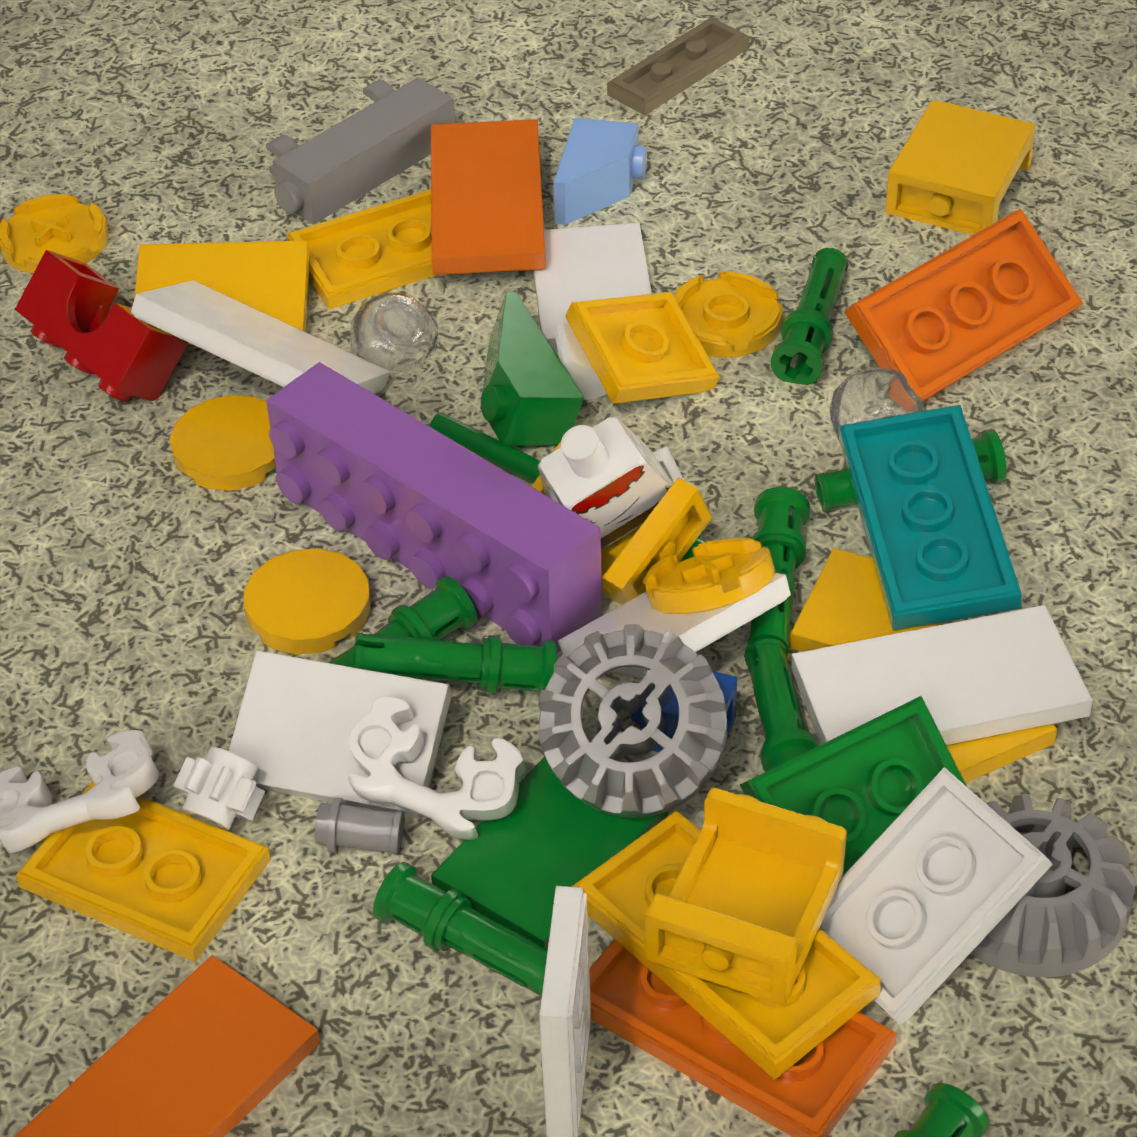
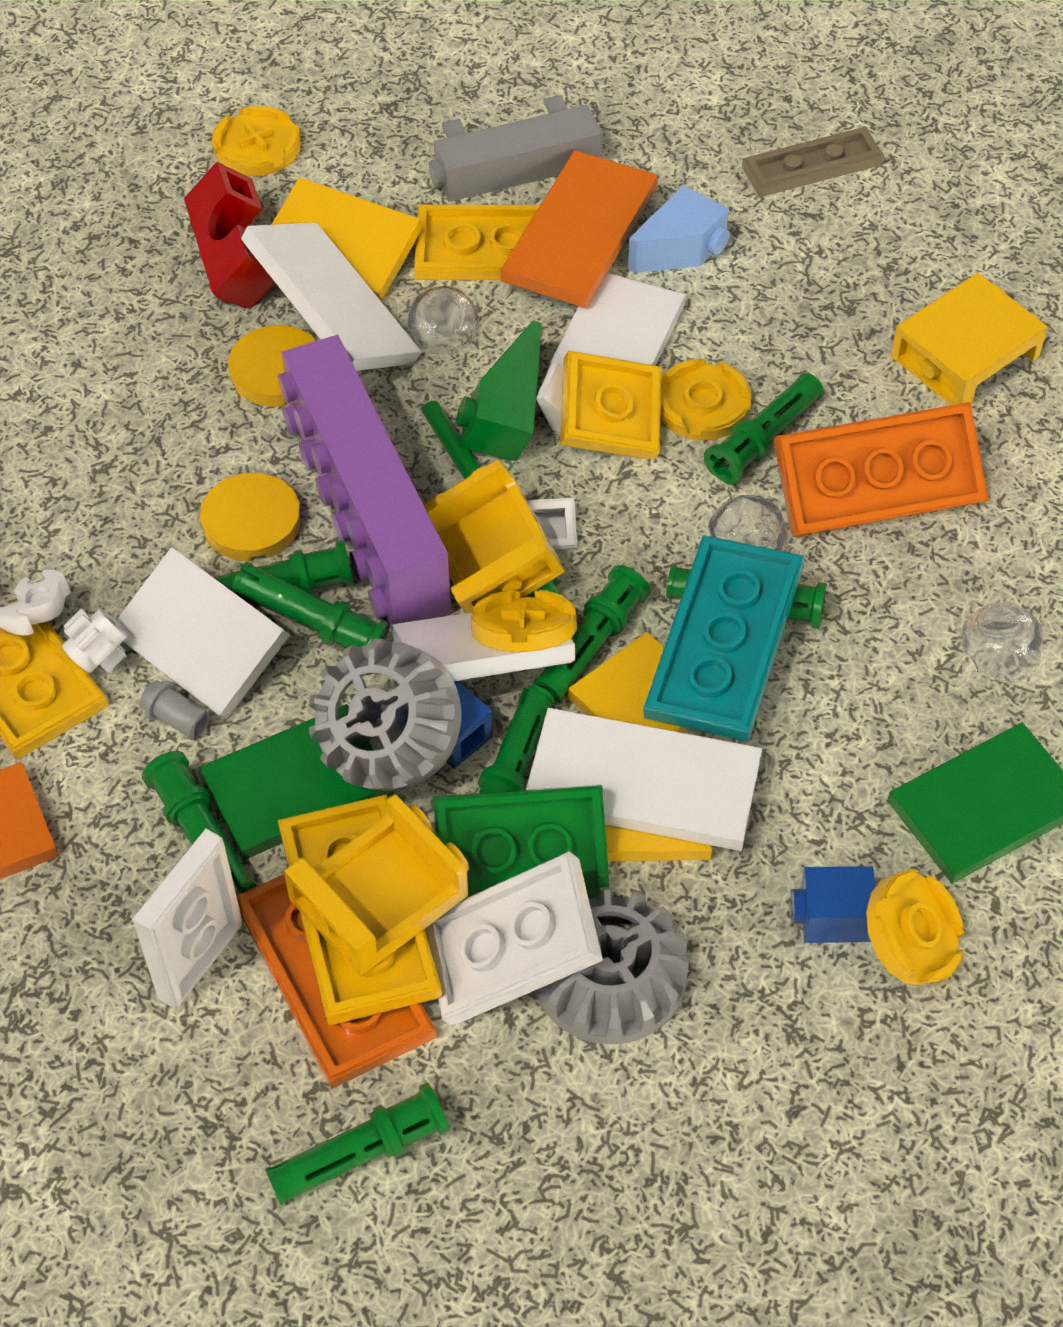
camera: 25 degrees right, 10 degrees up
(488, 786) = (267, 720): white helmet -> none
(605, 477) = (484, 515): white torso -> none

